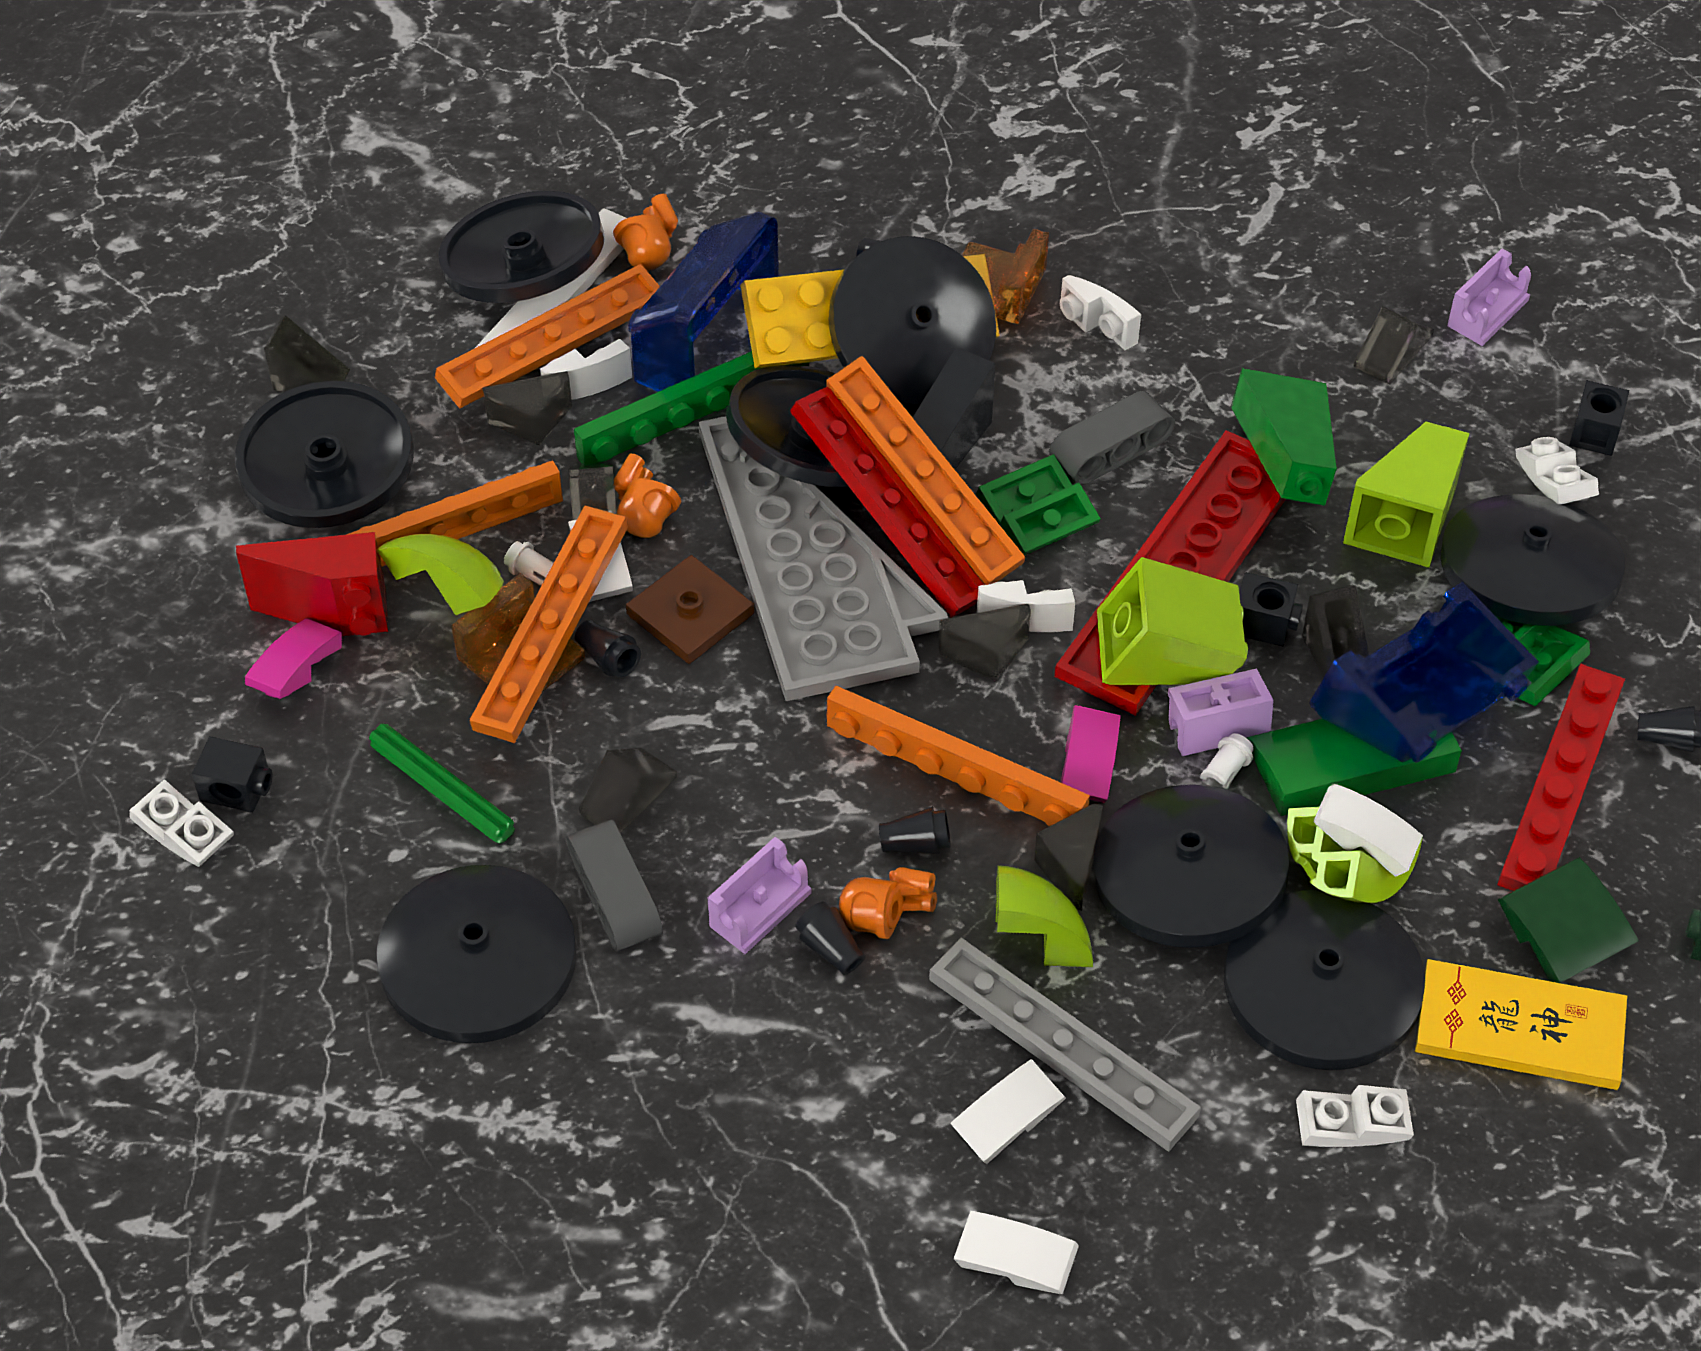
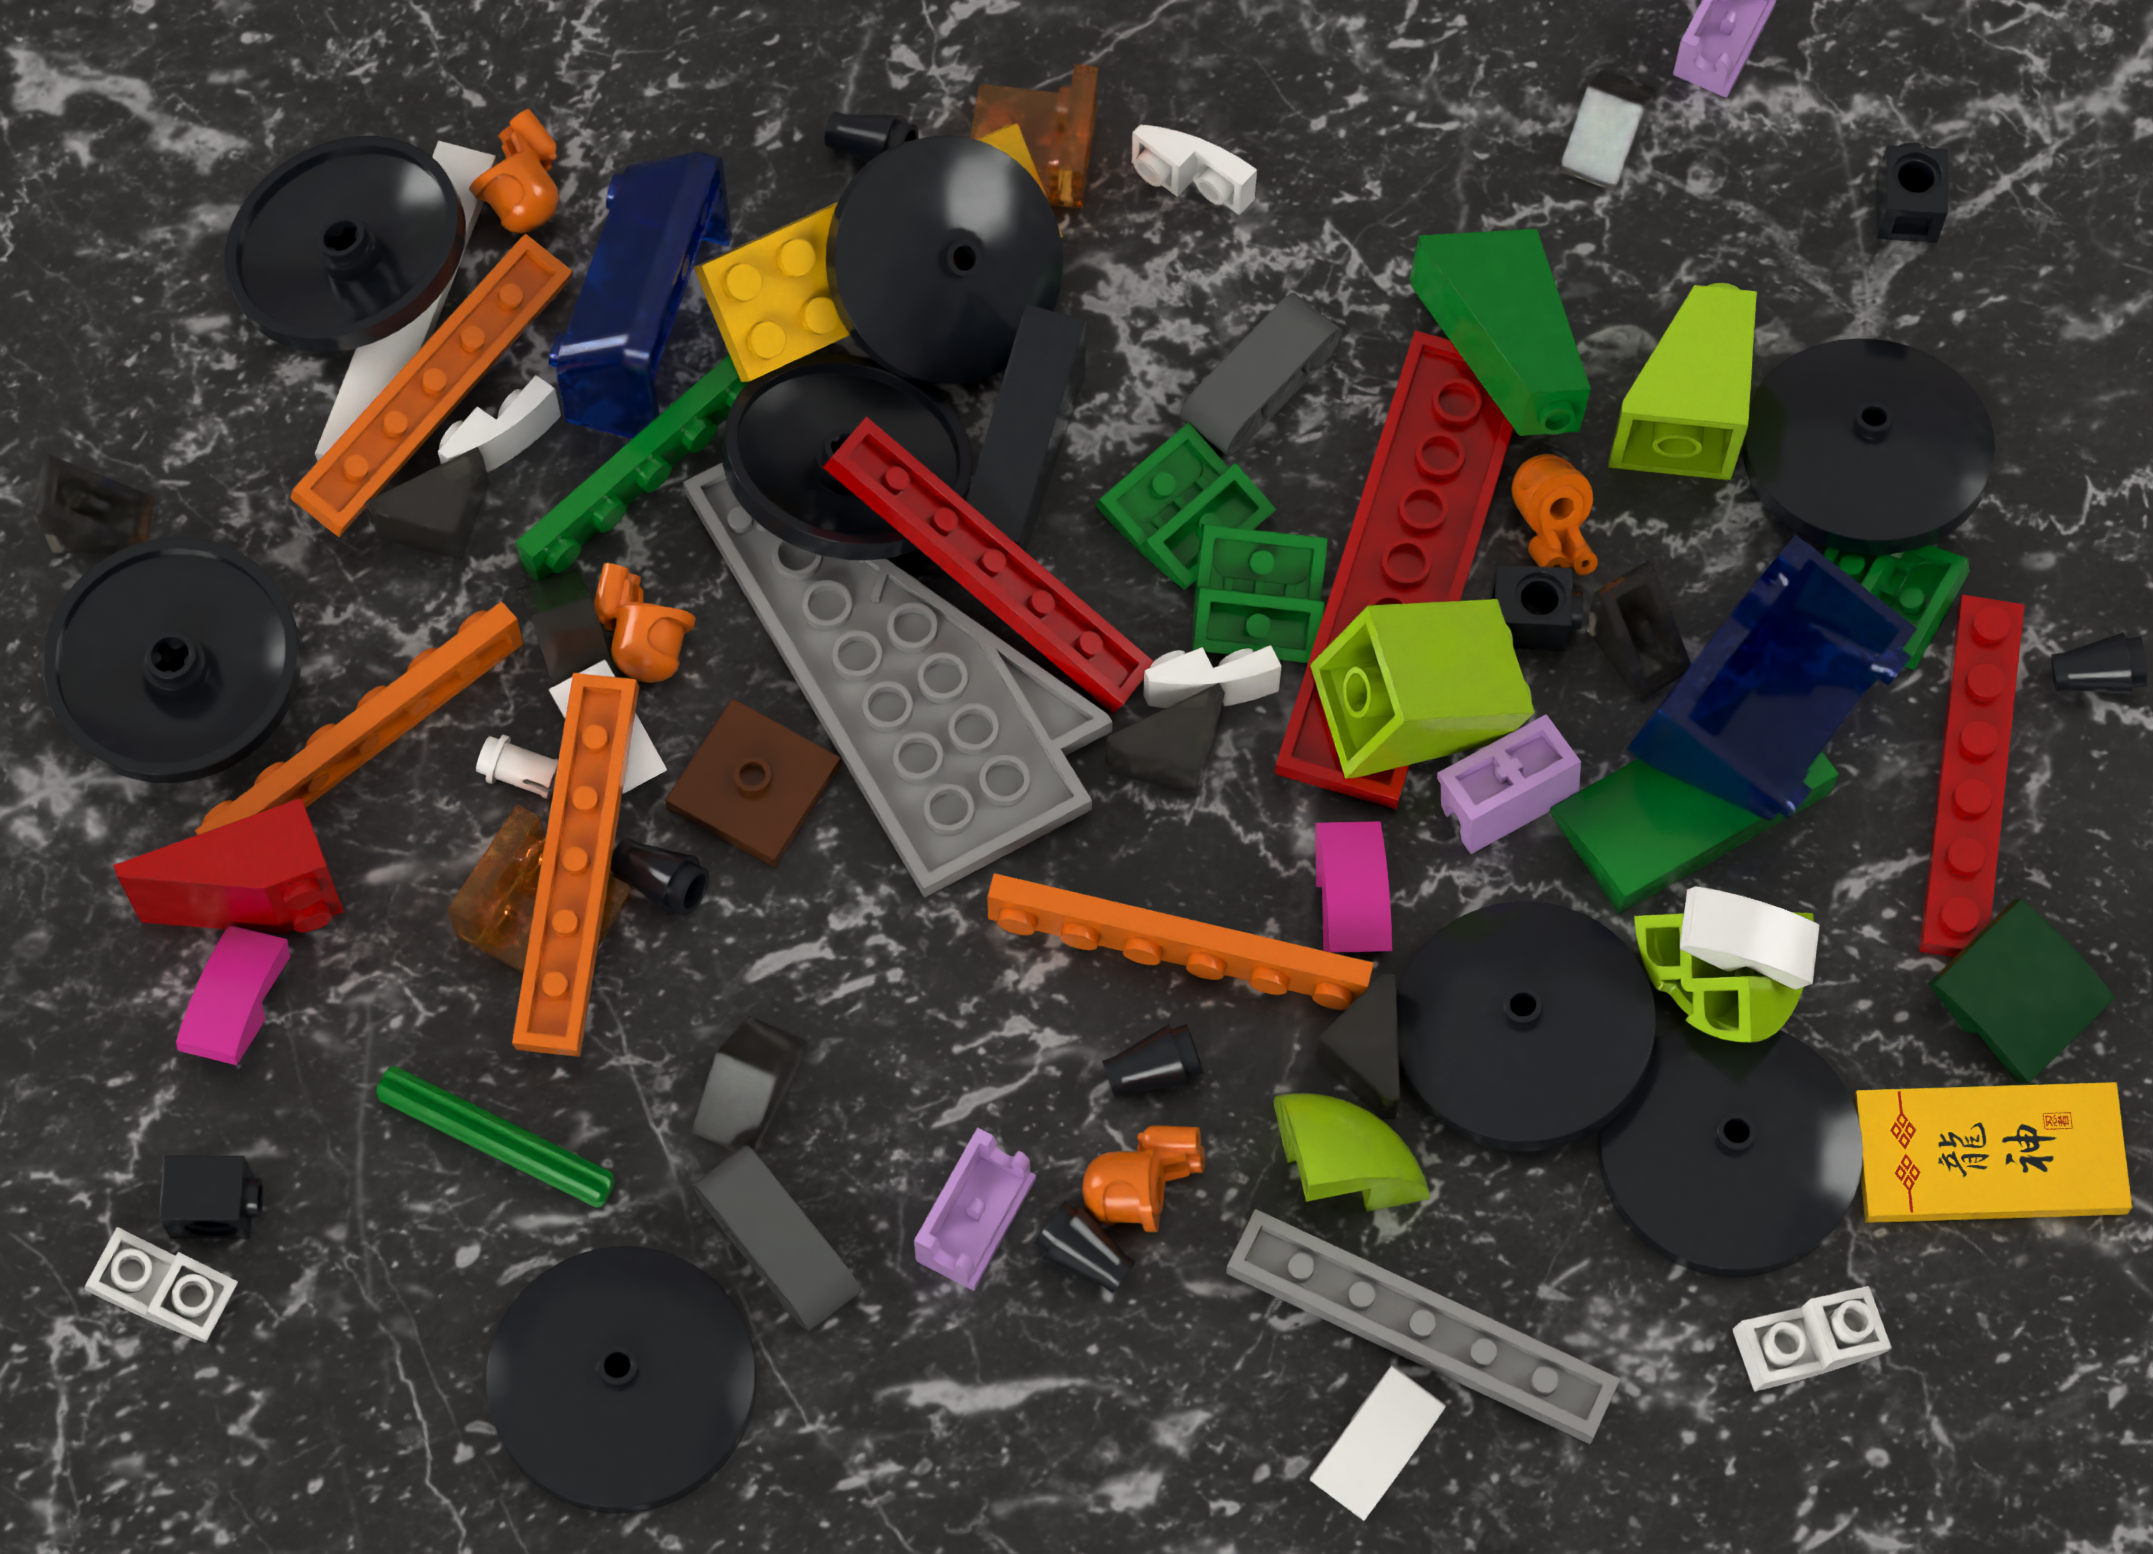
camera: 15 degrees left, 15 degrees up
(457, 569) = (419, 812): lime brick -> none
(926, 472) = (1029, 511): orange plate -> none
(1075, 557) = (1258, 591): none -> green slope
(1232, 755) = (1535, 857): white pin -> none
(1298, 549) = (1555, 504): none -> orange piece
(1555, 471) = (1867, 292): white slope -> none

